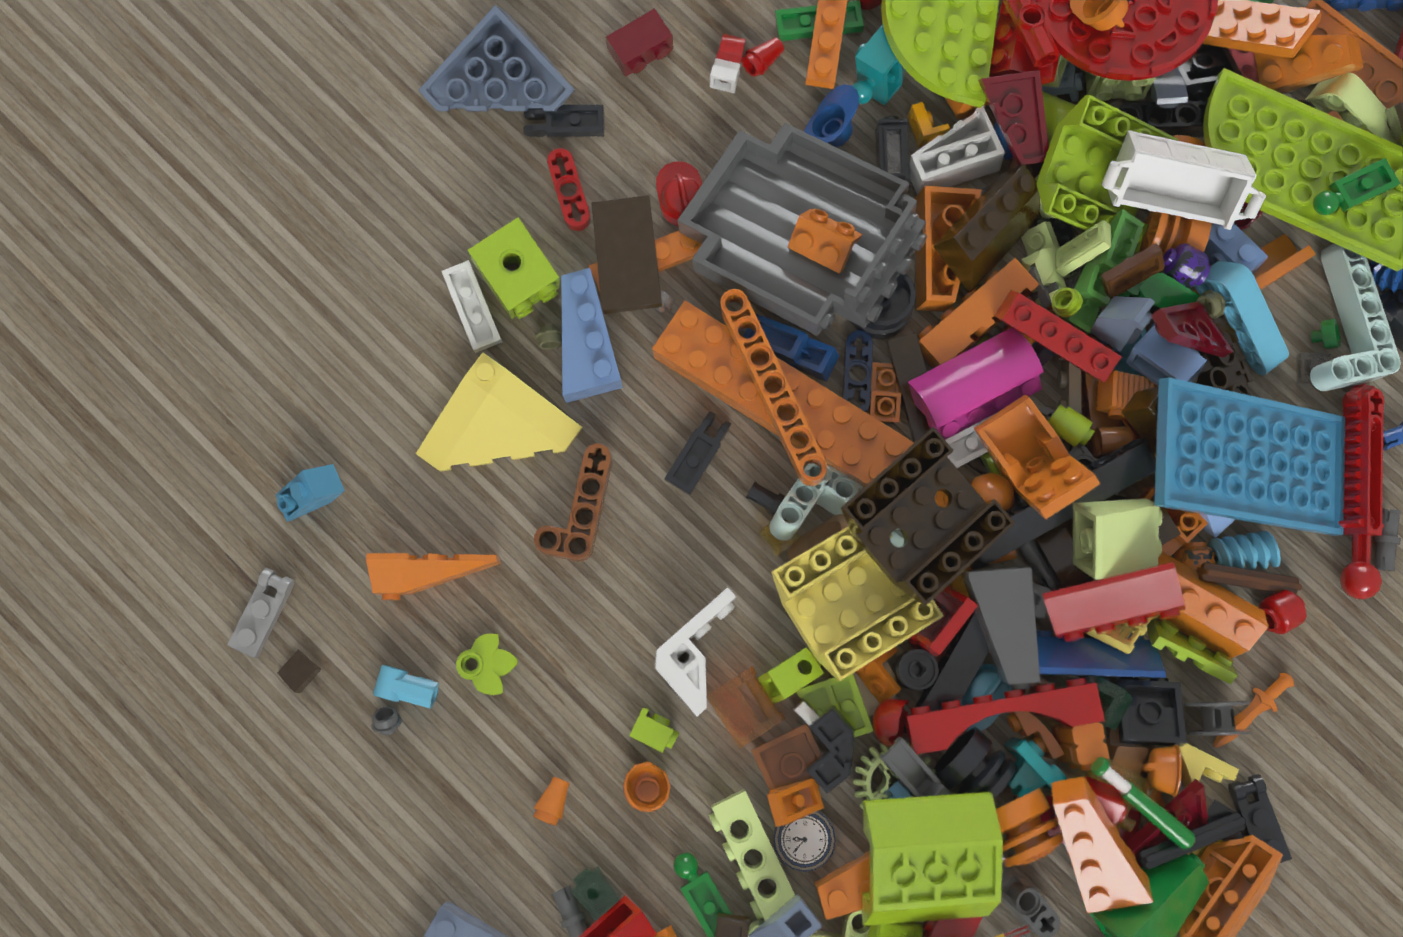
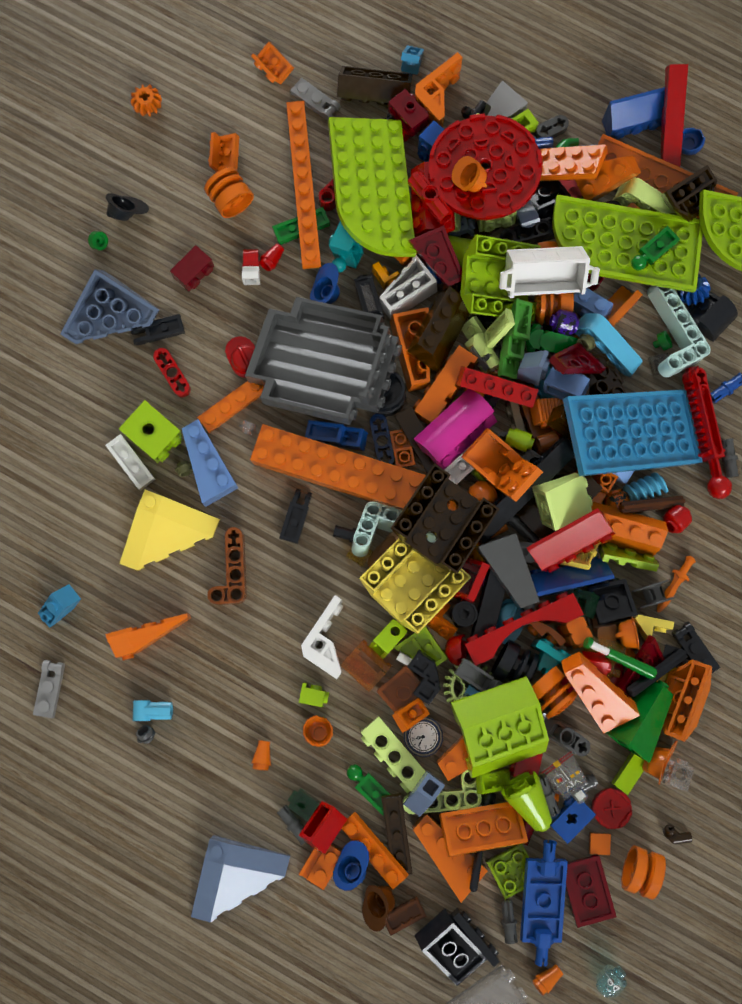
camera: 15 degrees left, 0 degrees up
(298, 672) = (82, 719): dark brown slope -> none
(491, 664) = (201, 681): lime plate -> none
(626, 254) = (218, 404): dark brown tile -> none
(772, 372) = (325, 456): orange beam -> none
(823, 239) = (338, 364): orange bracket -> none
(1064, 296) = (497, 364): lime plate -> none
(1133, 271) = (532, 335): reddish brown plate -> none

